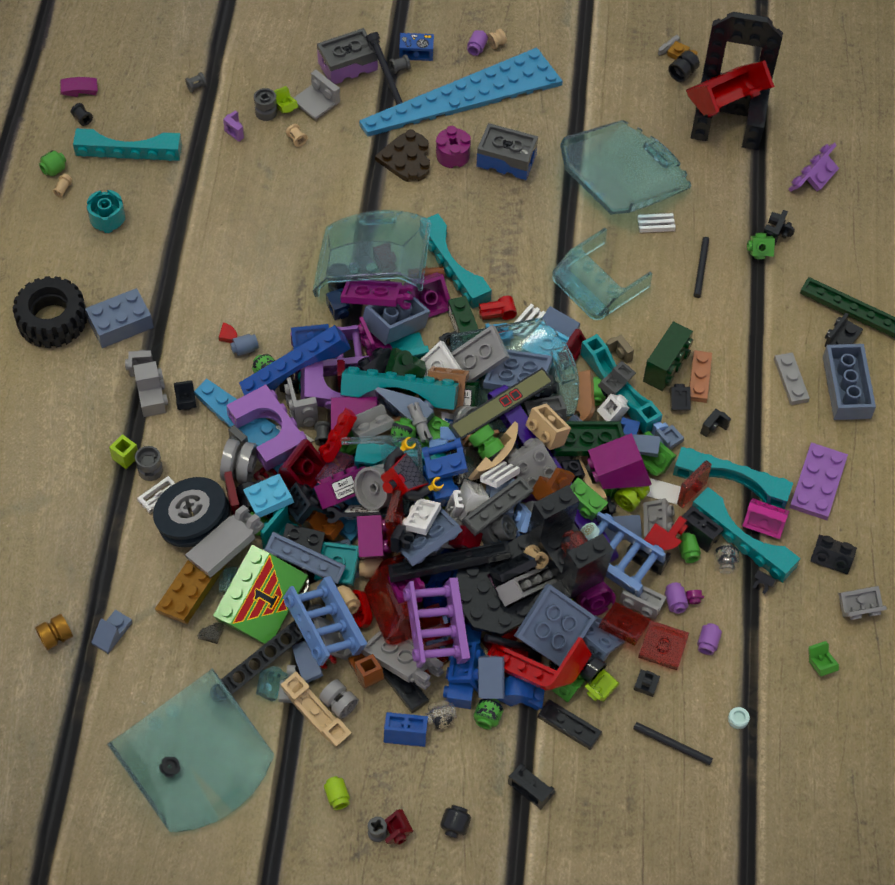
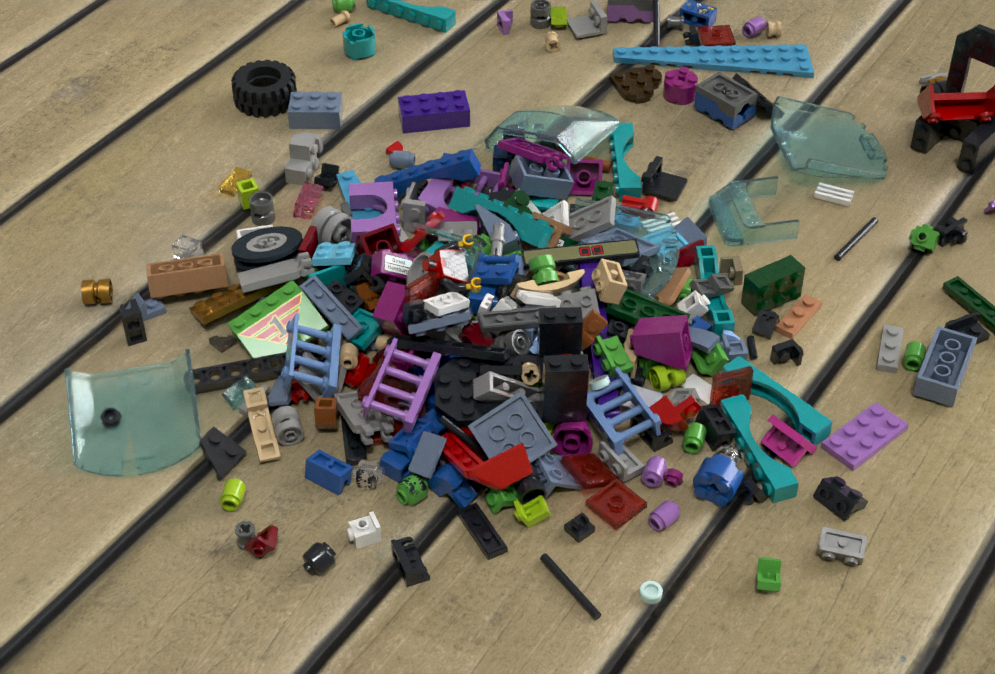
camera: 30 degrees right, 15 degrees down
(95, 439) = (228, 186): none -> clear yellow plate
(108, 543) = (187, 247): none -> clear brick
(122, 654) = (133, 324): none -> black hinge
(133, 576) = (186, 275): none -> medium nougat brick
(185, 433) = (307, 200): none -> clear pink hinge
(237, 272) = (434, 111): none -> dark purple brick
(297, 754) = (221, 452): none -> black wing
(427, 77) = (693, 36): none -> black tile
(447, 67) = (716, 35): none -> clear red plate
(471, 781) = (364, 531): none -> white brick
(503, 273) = (660, 183): none -> black bracket
(543, 138) = (762, 101): none -> black wing
(679, 426) = (752, 347): none -> black piece
(736, 586) = (717, 479): none -> blue brick
(817, 379) = (914, 355): none -> bright green brick

